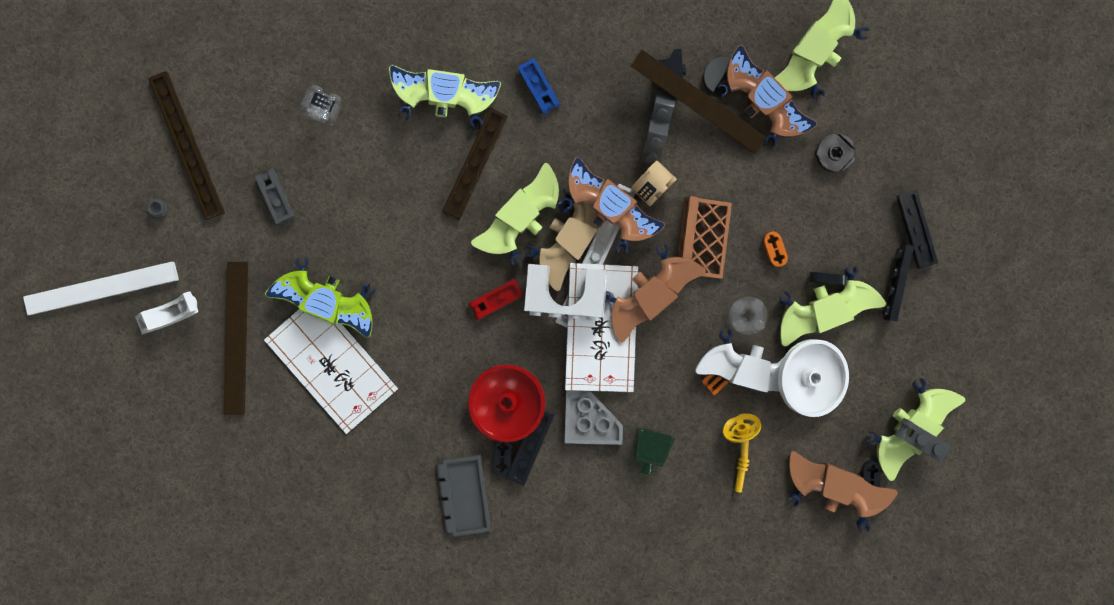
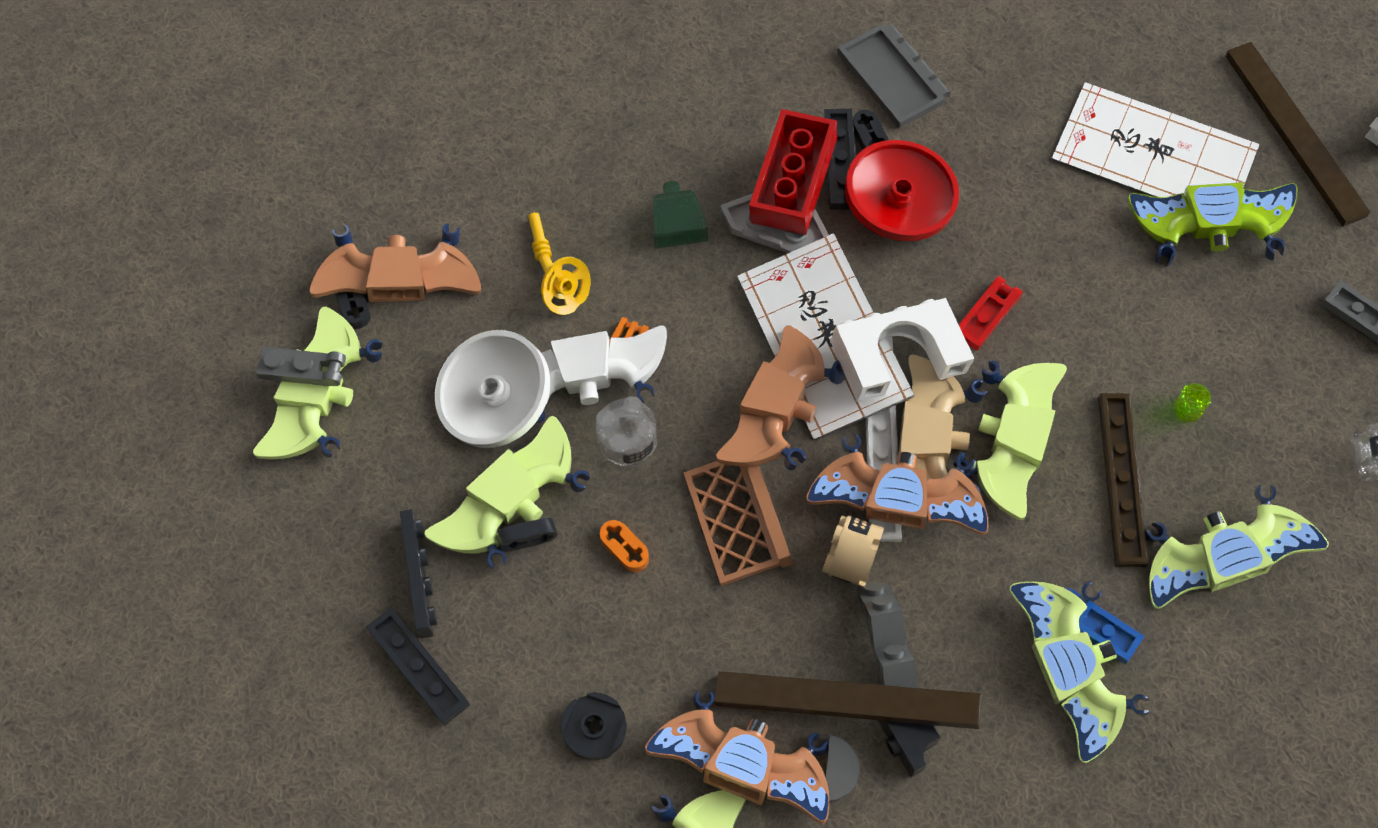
camera: 155 degrees right, 25 degrees down
(412, 190) = (1189, 409): none -> clear neon green wheel
(565, 69) = (1074, 664): none -> torso
(570, 442) = (793, 171): none -> red brick

